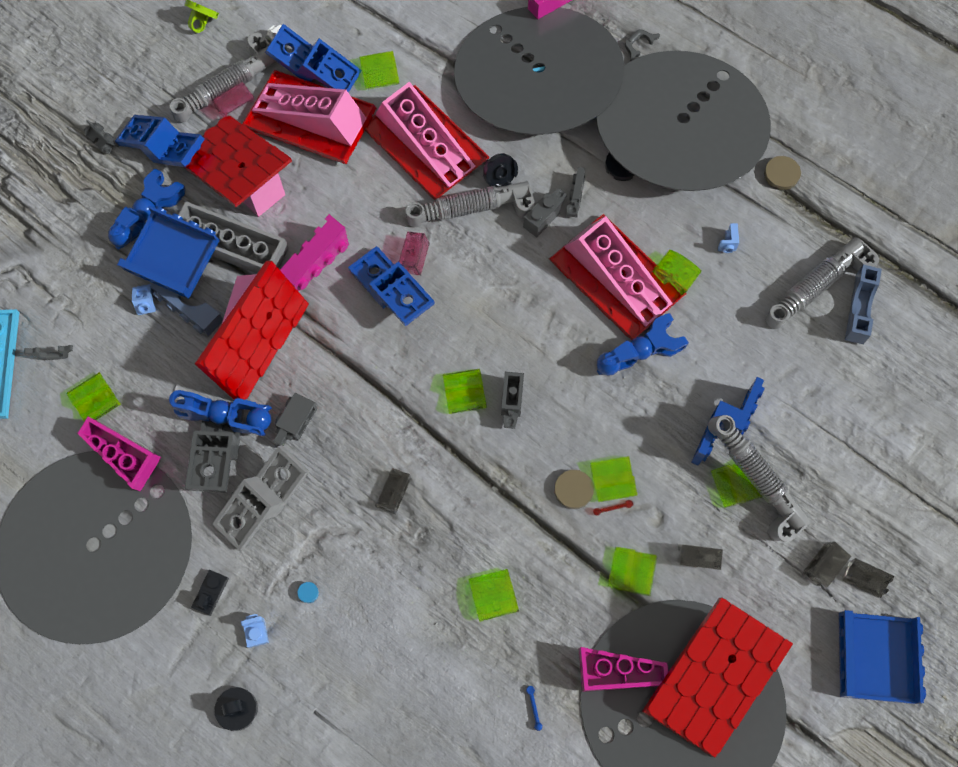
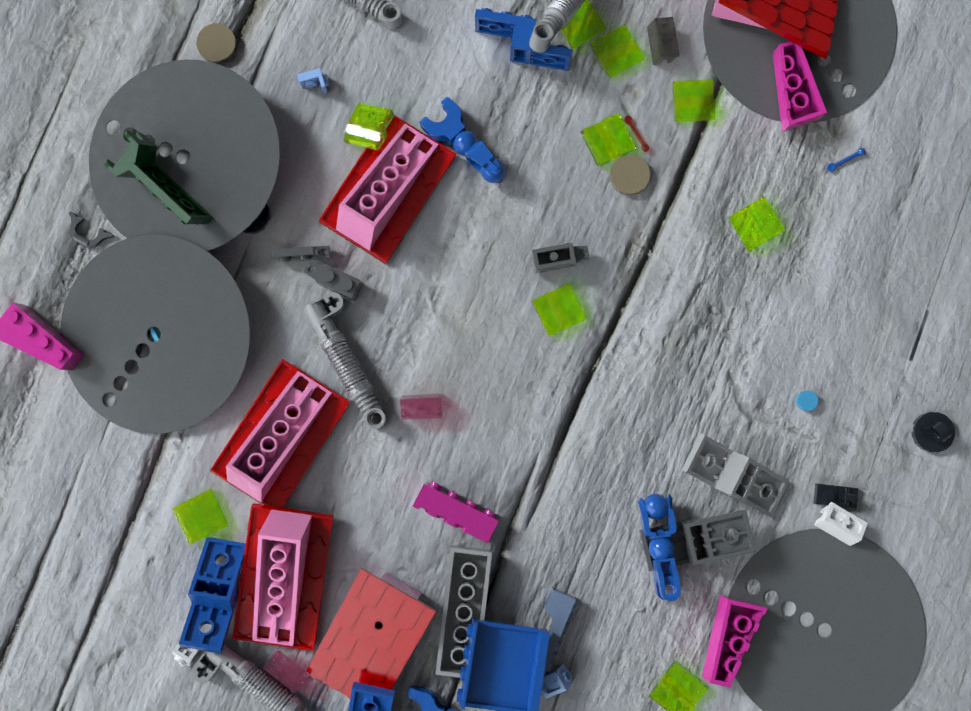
camera: 100 degrees left, 15 degrees up
(181, 586) = (841, 524): none -> white hinge
(253, 329) = (559, 546): red piece -> none
(255, 630) = (858, 438): light blue bracket -> none
(294, 419) = (641, 471): dark grey hinge -> none
(391, 286) = (470, 416): blue bracket -> none
(393, 491) = (685, 349): clear smoke hinge -> none
(500, 170) = (299, 341): black tile -> none
(663, 89) = (139, 163): none -> dark green hinge
(699, 511) = (616, 51): none -> clear neon green slope

